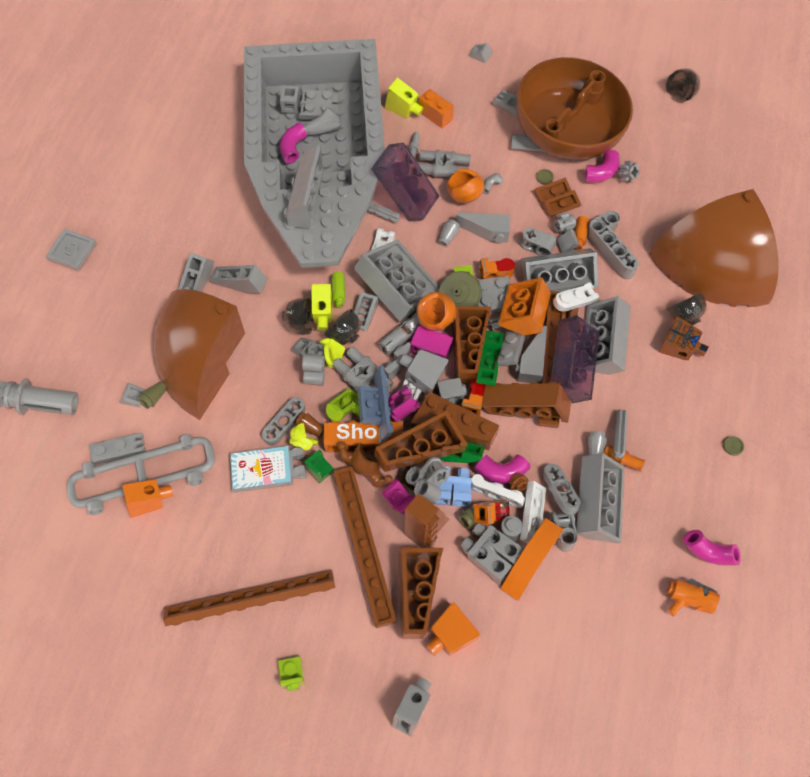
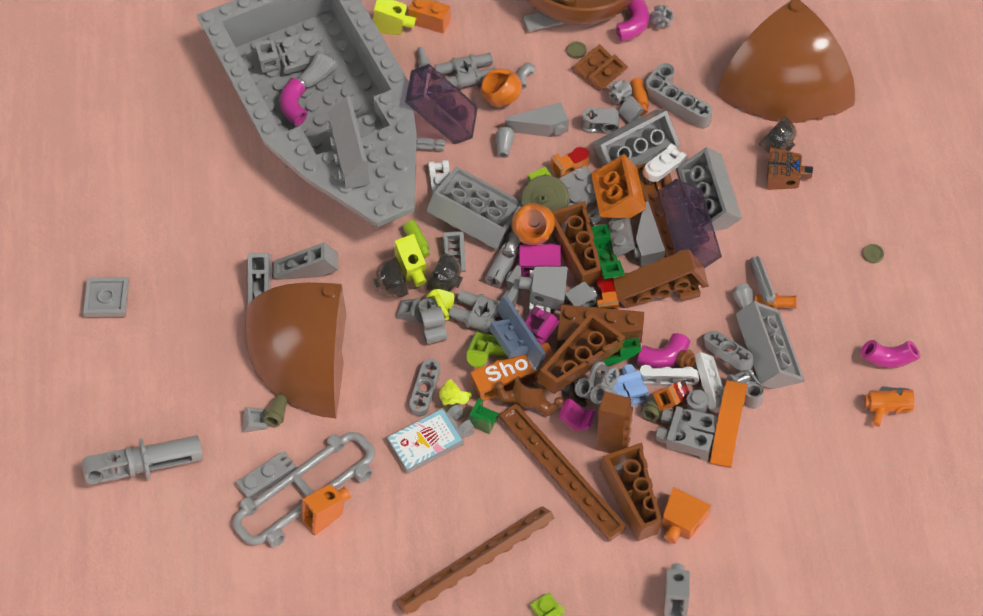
camera: 20 degrees left, 5 degrees down
(311, 424) = (461, 381): dark orange cone -> none

